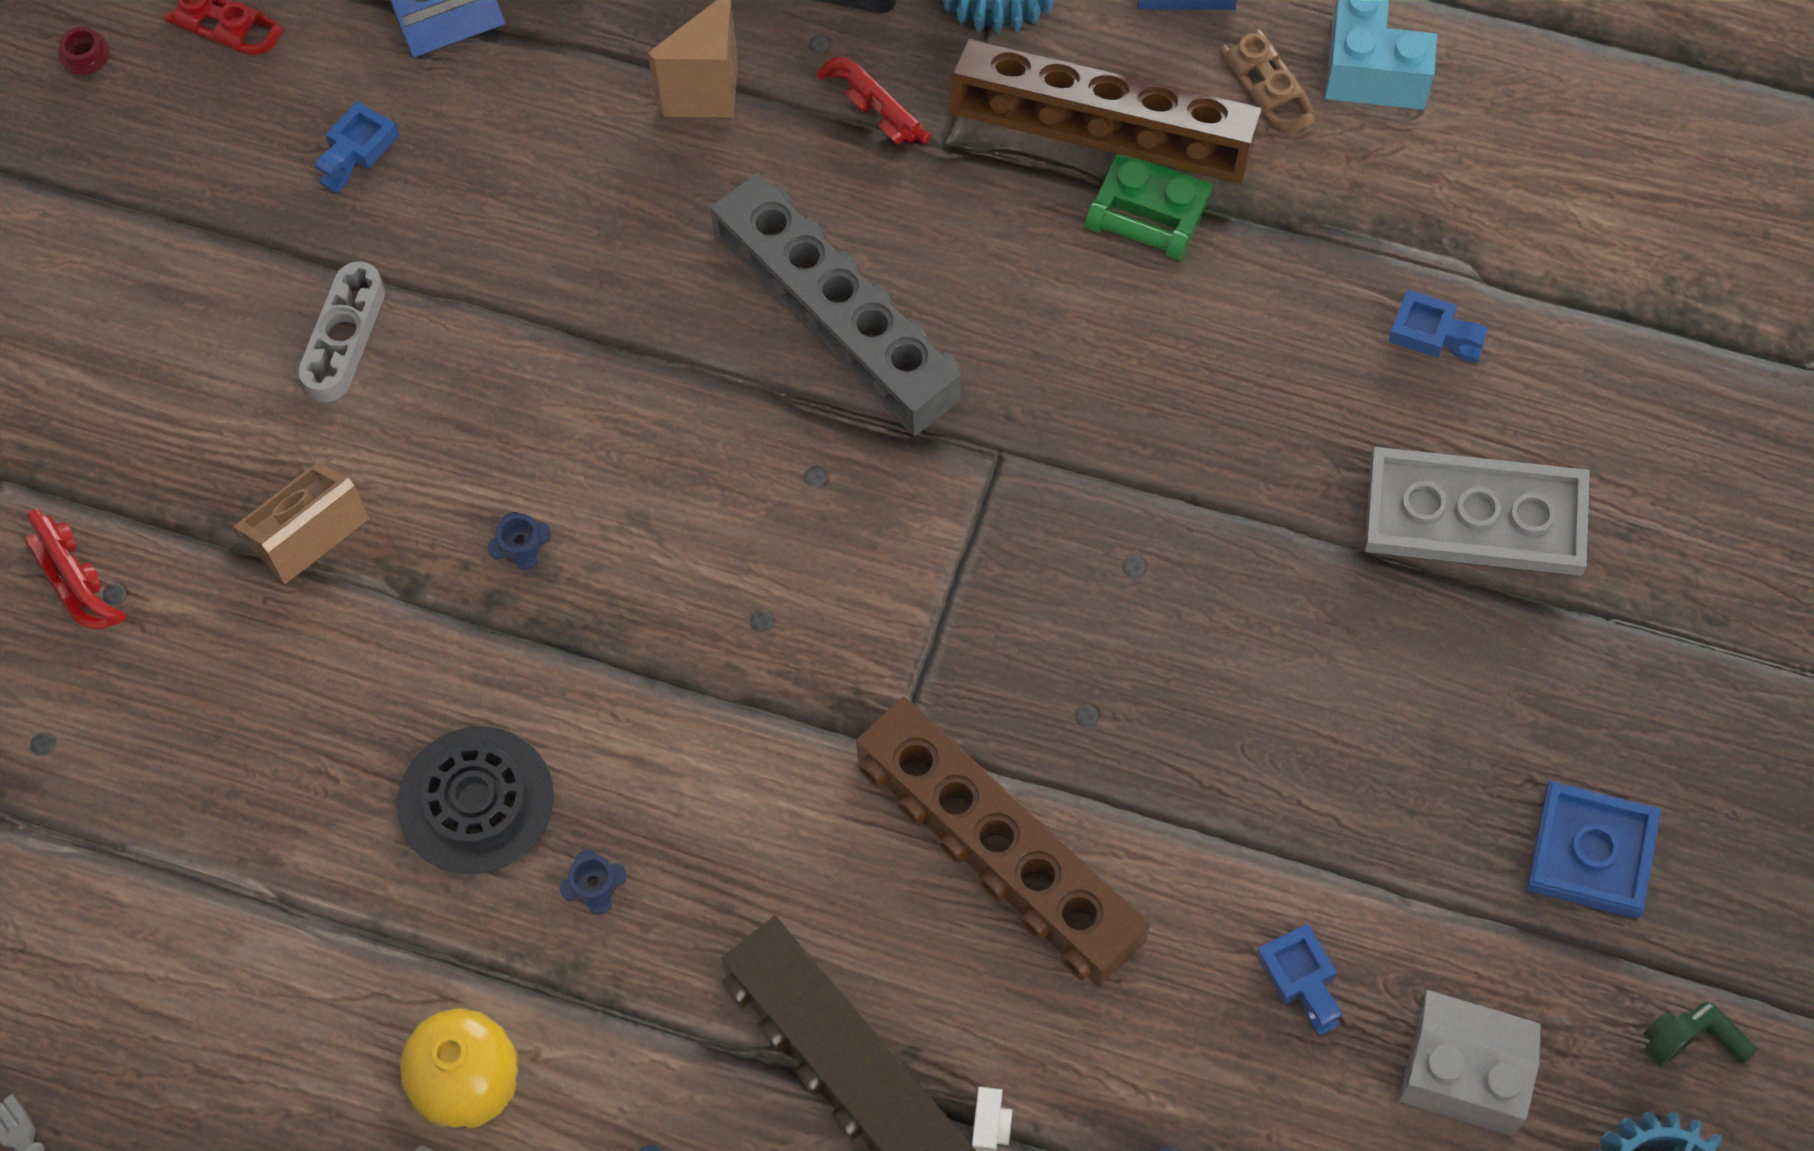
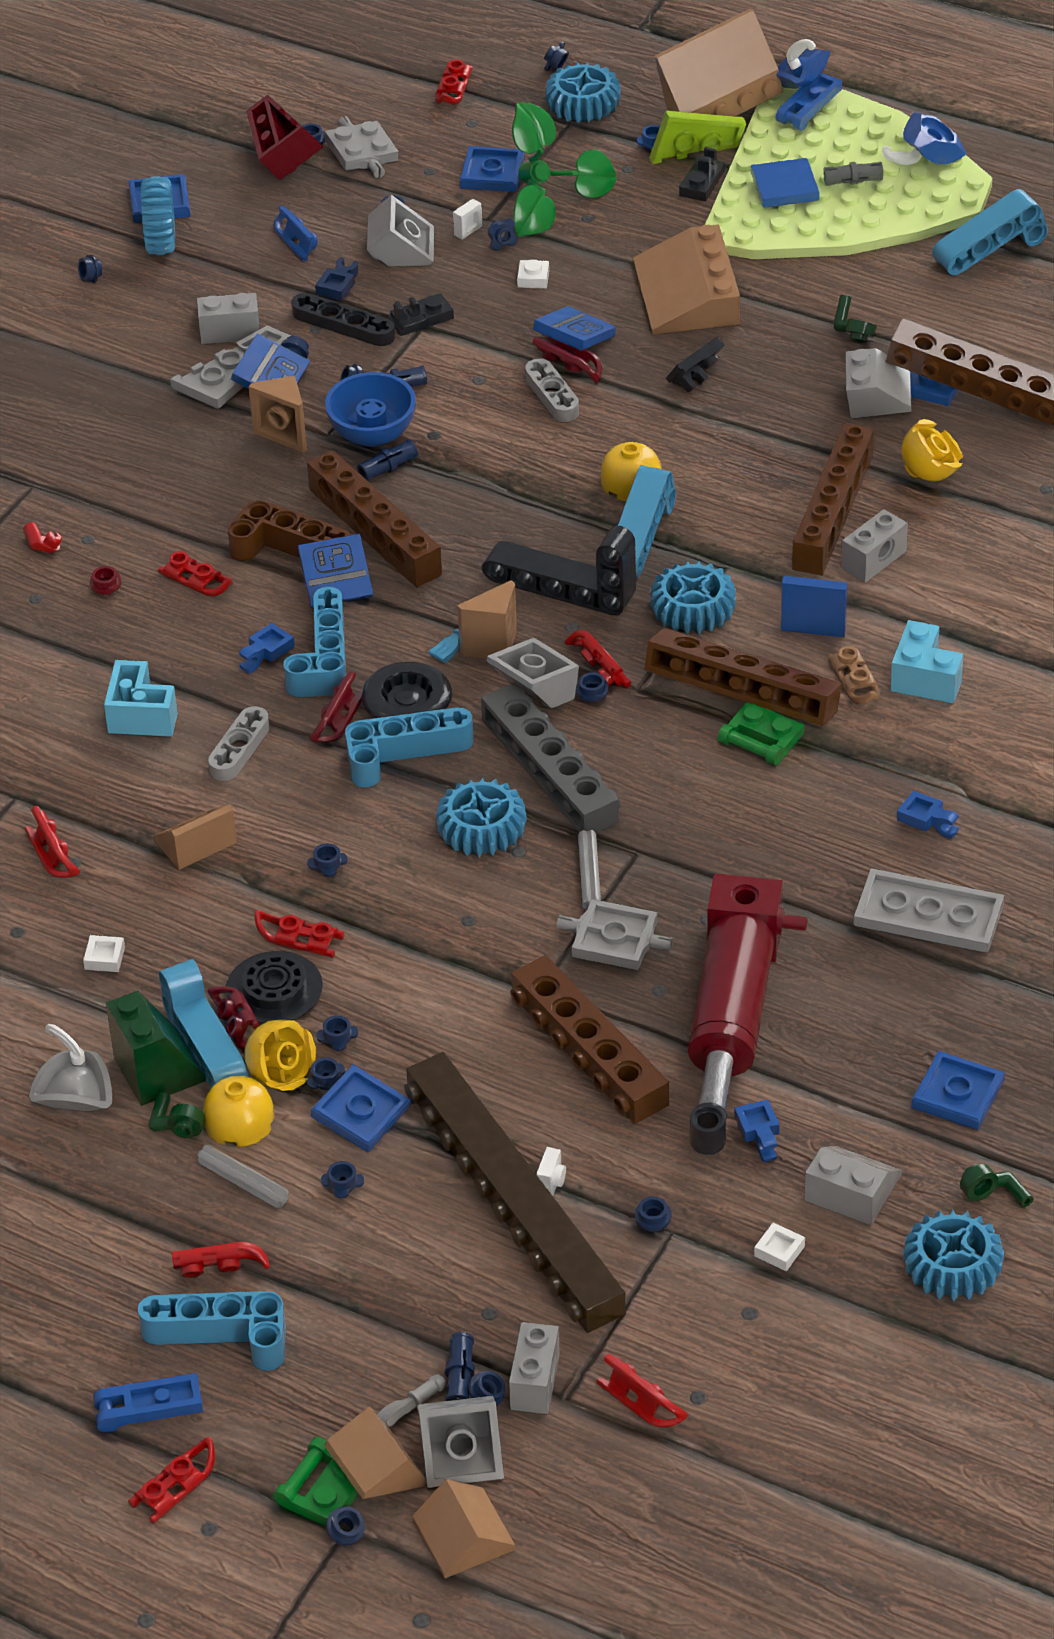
camera: 10 degrees right, 20 degrees down
(165, 290) = (137, 705): none -> medium azure brick
(175, 1044) = (72, 1078): none -> light grey hat
(189, 777) = (104, 953): none -> white plate
(299, 975) = (150, 1049): none -> dark green slope
(371, 1105) = (183, 1120): none -> dark green plate
(374, 916) = (198, 1024): none -> dark azure beam
(408, 872) = (227, 1011): none -> dark red piece
(454, 163) = (320, 671): none -> dark azure beam
(479, 258) = (331, 714): none -> dark red piece
(484, 683) = (291, 927): none -> red piece
(508, 956) = (280, 1054): none -> yellow cylinder
(577, 958) = (325, 1073): none -> dark blue plate
(594, 222) = (406, 690): none -> black wheel
(636, 107) = (447, 647): none -> dark azure piece
(656, 1030) = (360, 1108): none -> blue tile
(682, 275) = (404, 738): none -> dark azure beam
(767, 406) = (481, 817): none -> dark azure gear
(789, 146) = (537, 671): none -> light grey slope
(874, 145) = (592, 687): none -> dark blue plate
(935, 503) = (589, 867): none -> light grey axle
(999, 625) = (614, 934): none -> light grey plate
(1206, 614) = (742, 942): none -> dark red piece

